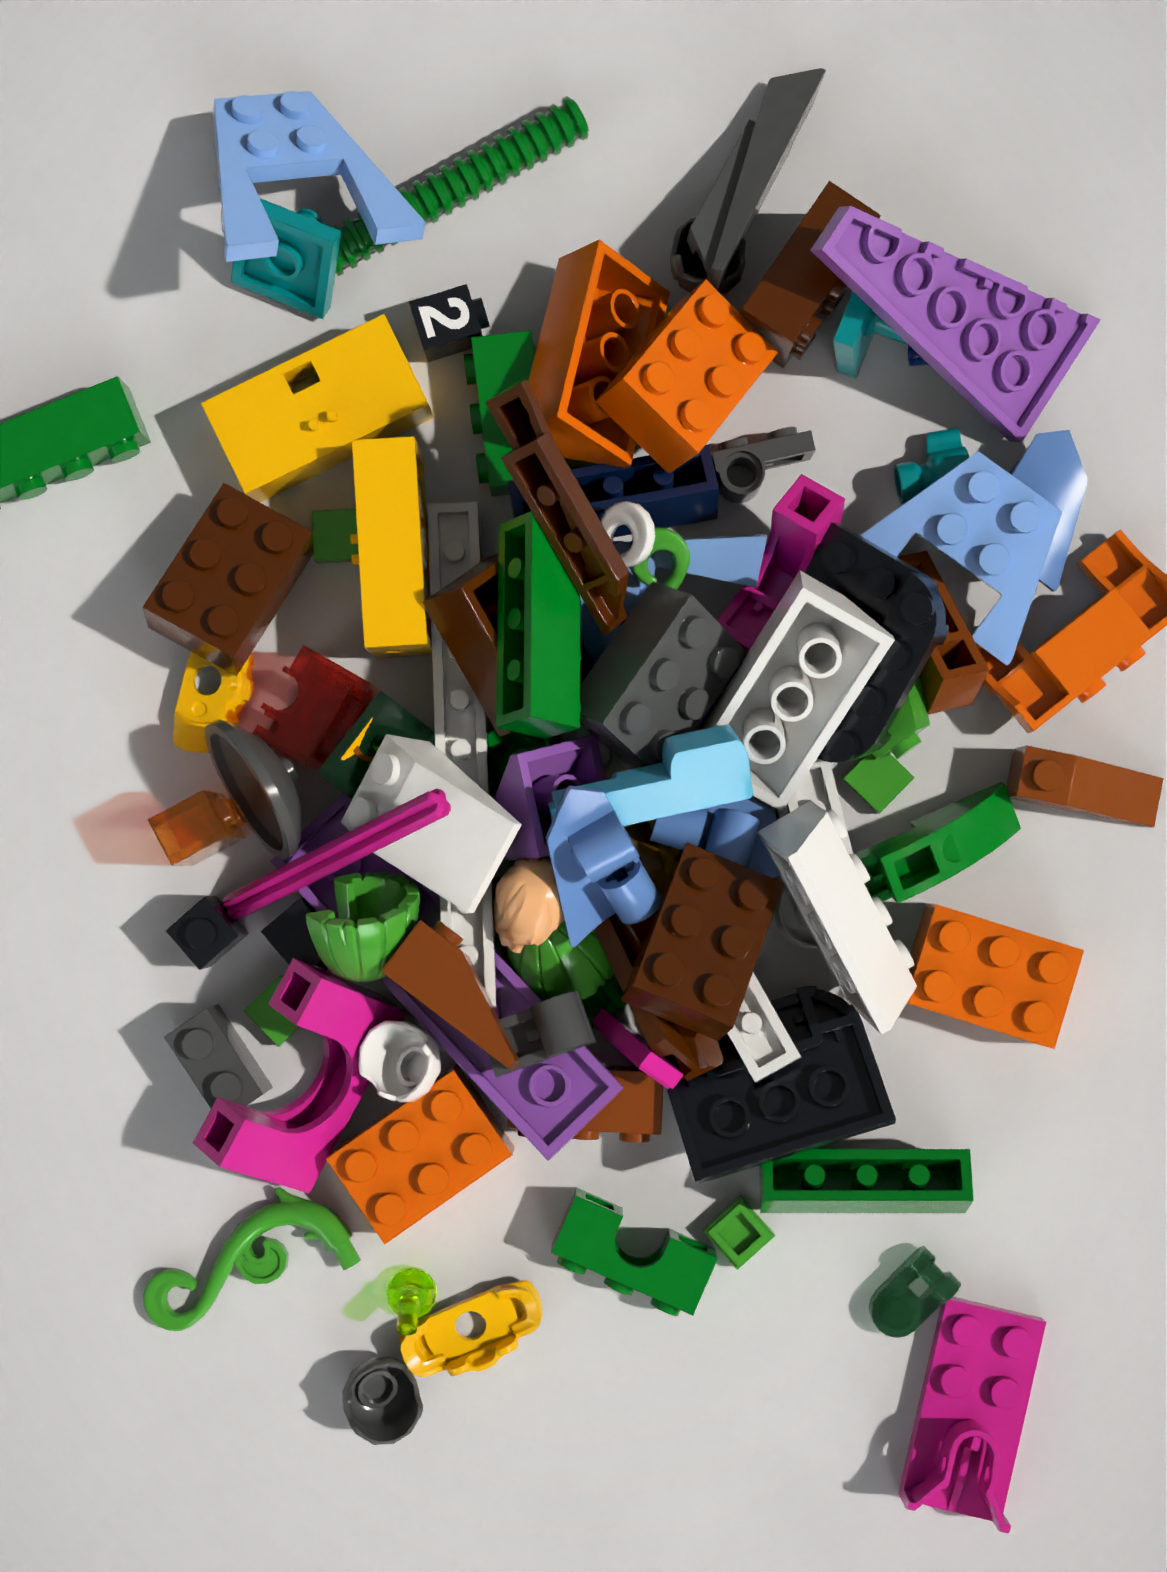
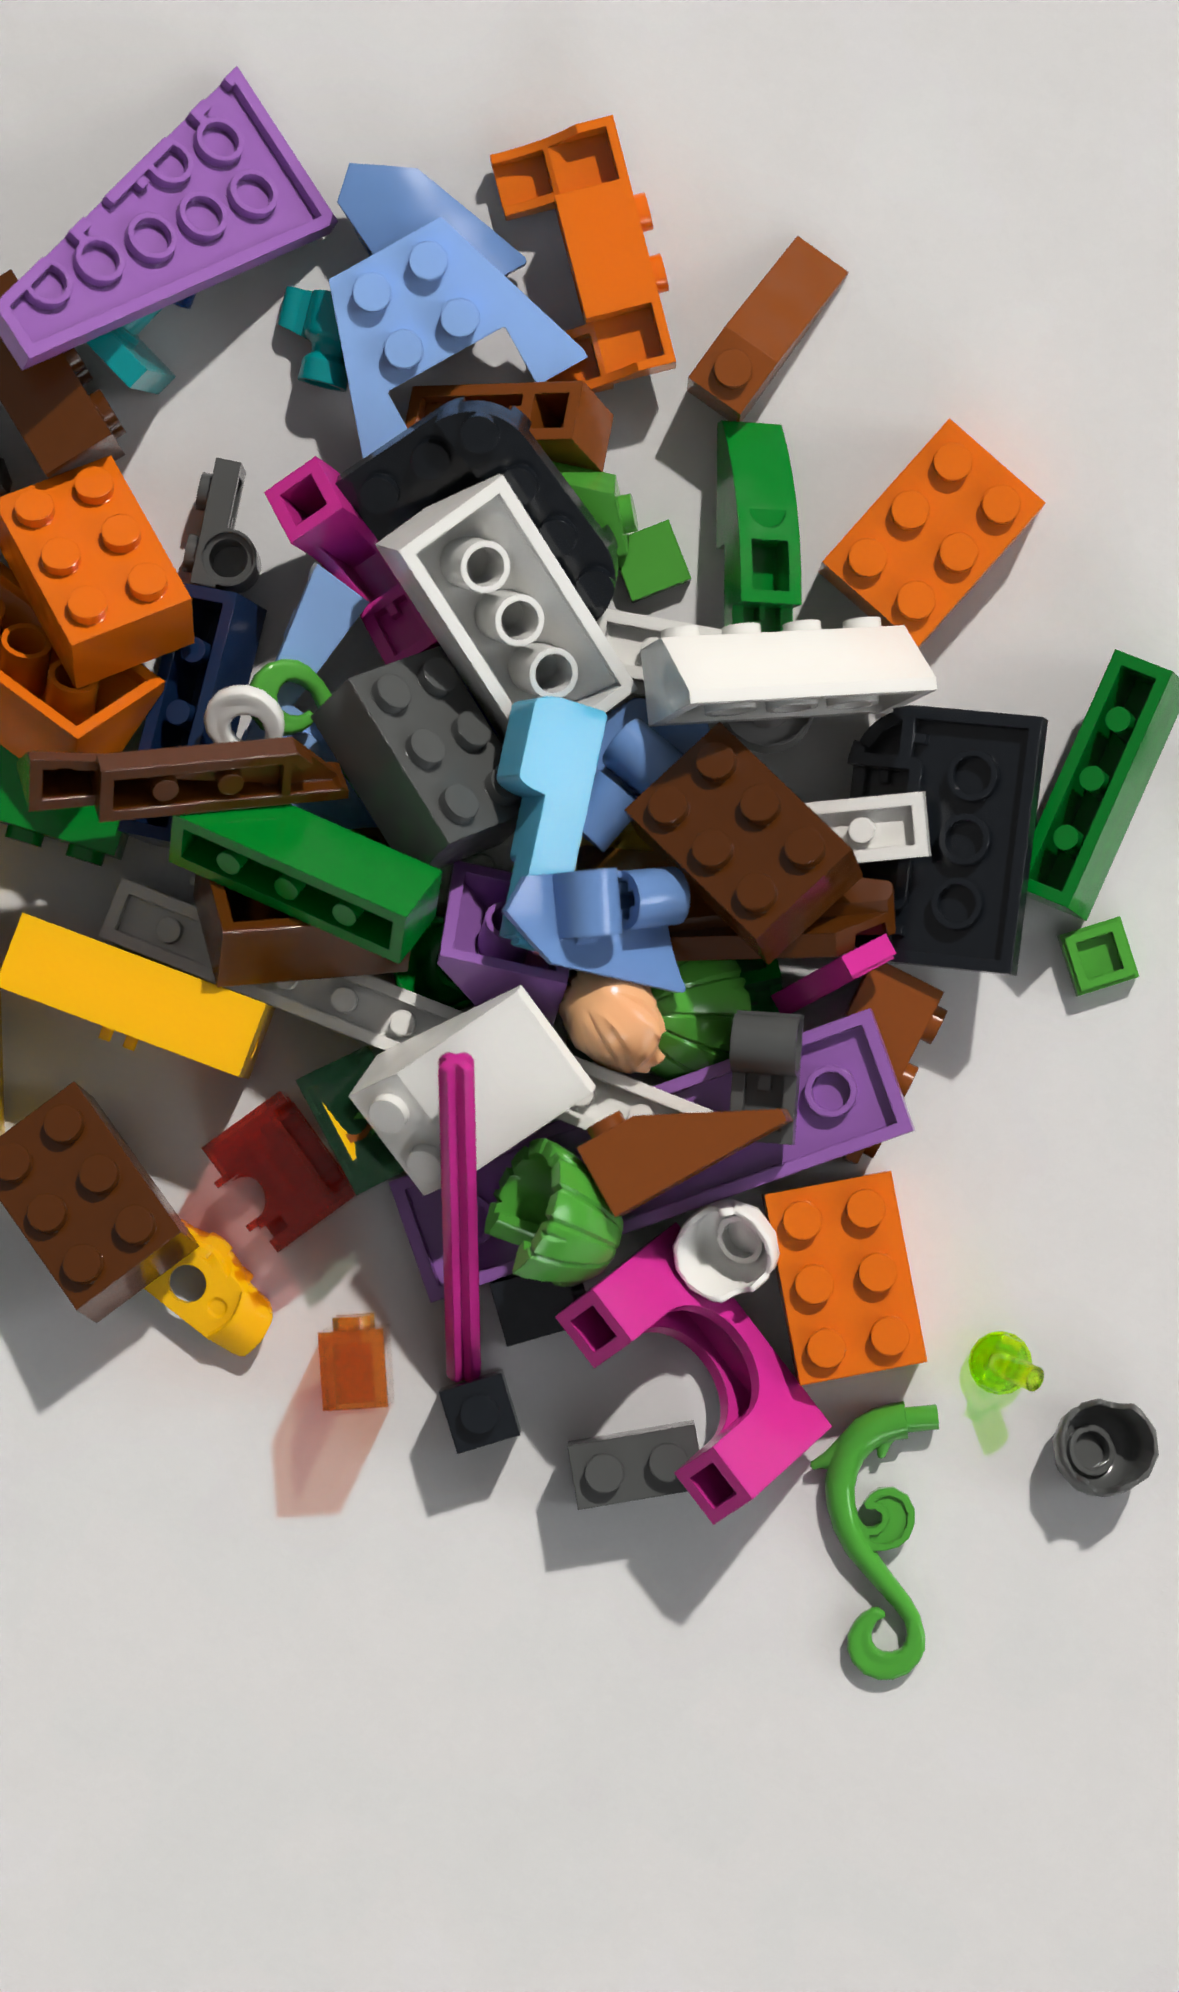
camera: 70 degrees left, 0 degrees up
(259, 785) = (339, 1273): dark grey dish -> none
(268, 1019) = (610, 1381): bright green tile -> none
(332, 535) = (86, 1058): bright green tile -> none
(437, 1346) = (1074, 1262): yellow piece -> none
(671, 1275) = (1111, 1053): green arch -> none

